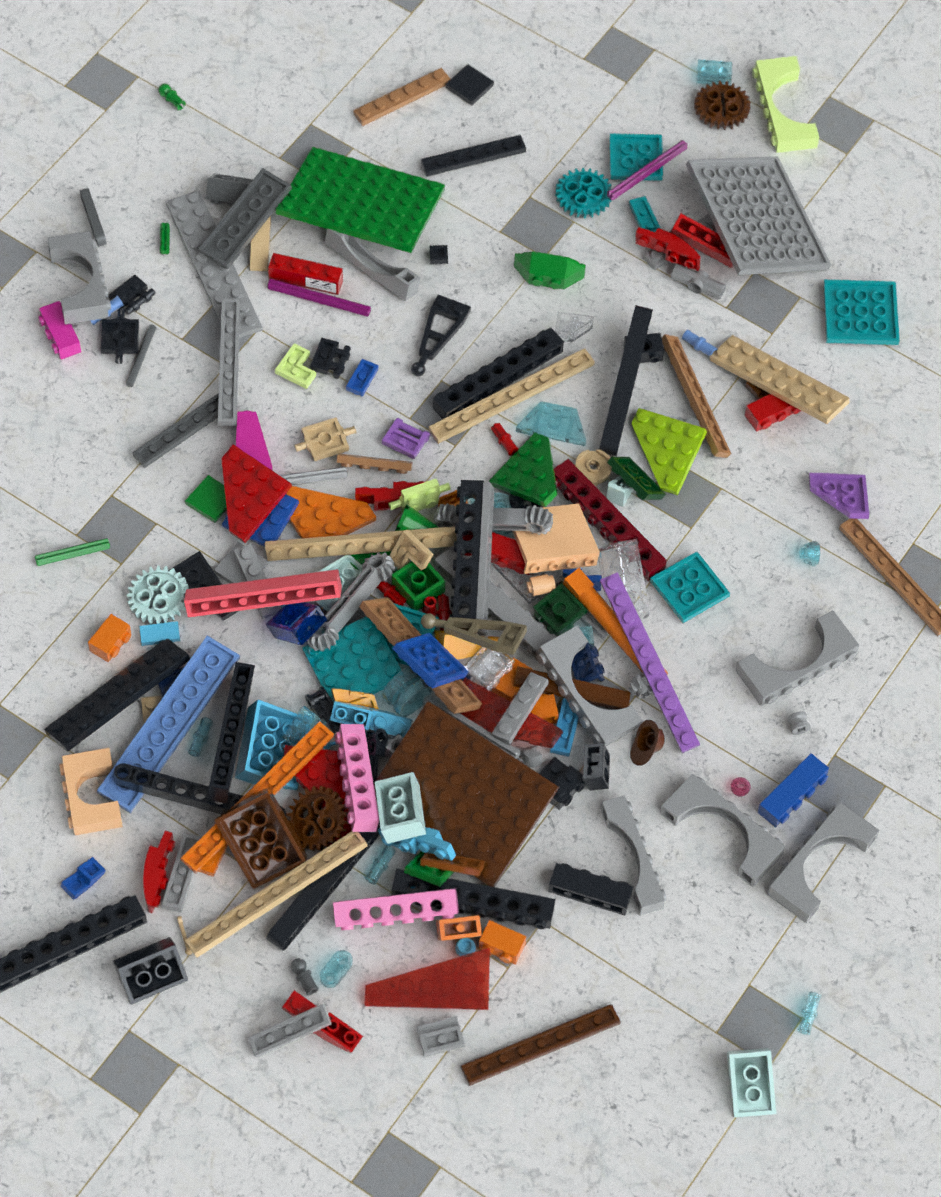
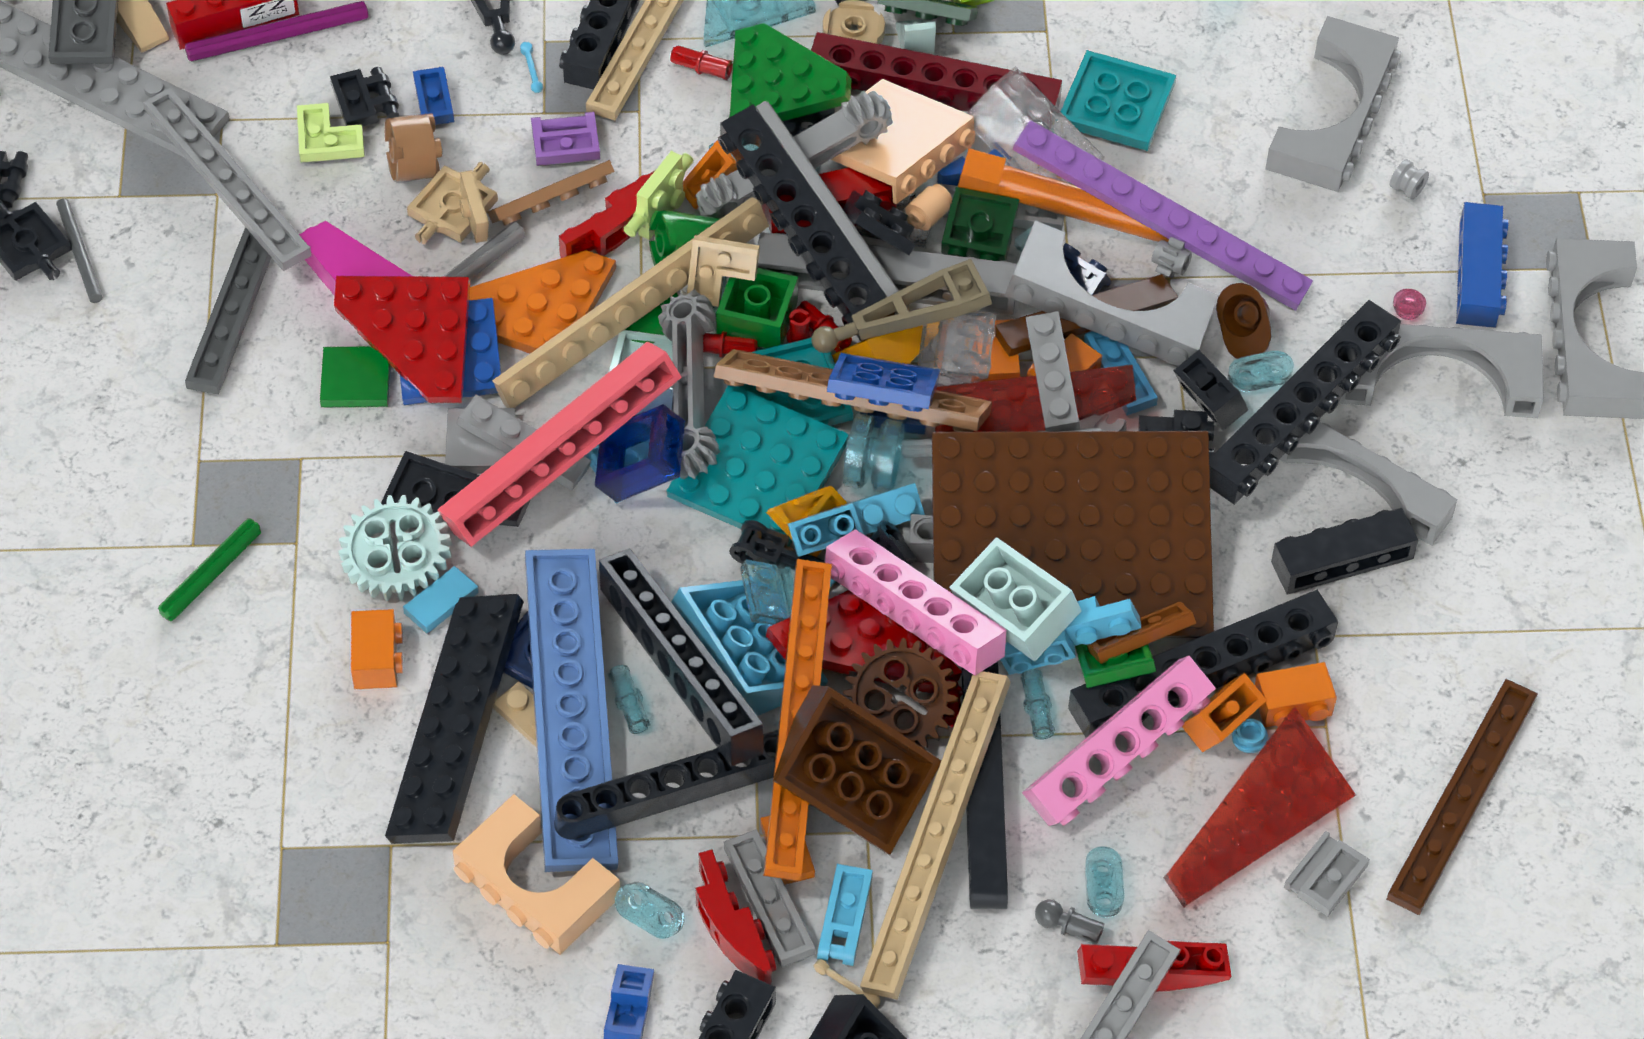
camera: 35 degrees left, 5 degrees down
(126, 841) = (651, 911): none -> clear light blue plate
(209, 903) = (845, 913): none -> medium azure plate
(326, 399) = (412, 147): none -> medium nougat brick
(327, 447) = (473, 207): none -> tan plate
(428, 379) = (526, 49): none -> medium azure hinge
(504, 578) = (885, 224): none -> black plate
(633, 773) = (1259, 370): none -> clear light blue plate
(637, 794) = (1302, 402): none -> black brick

